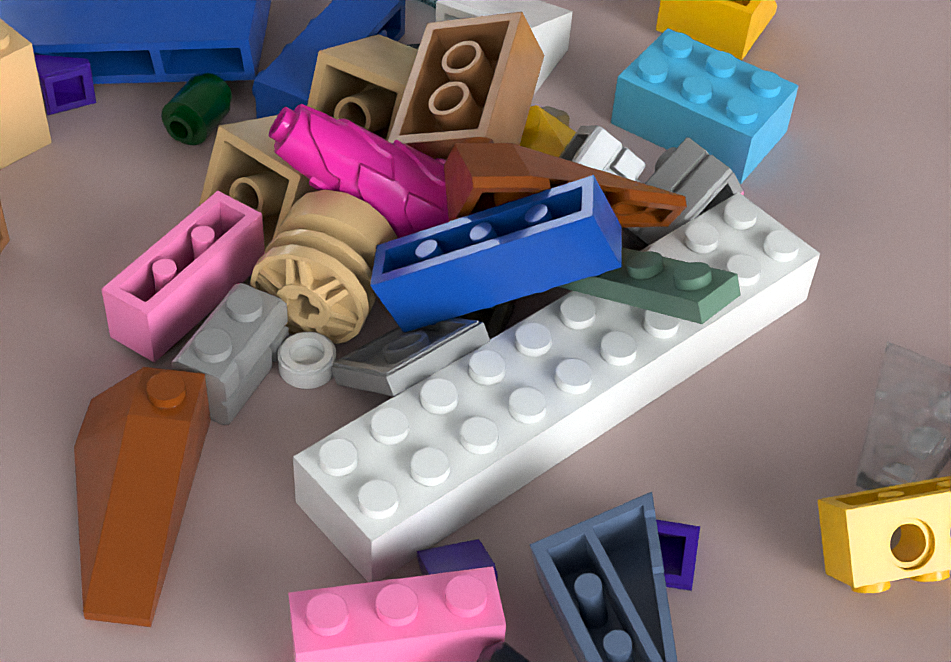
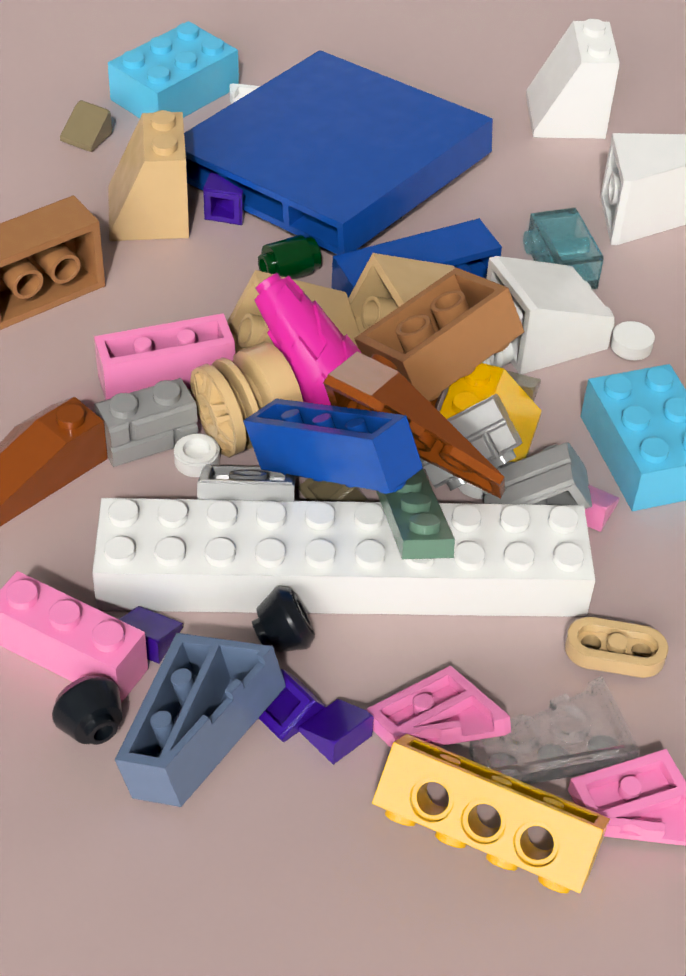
camera: 40 degrees right, 0 degrees up
(586, 469) = (283, 621): none -> black cone
(589, 31) = (632, 340): none -> white tile
(733, 541) = (338, 729): none -> dark purple slope
(806, 462) = (440, 711): none -> bright pink wing
(869, 308) = (615, 646): none -> tan plate

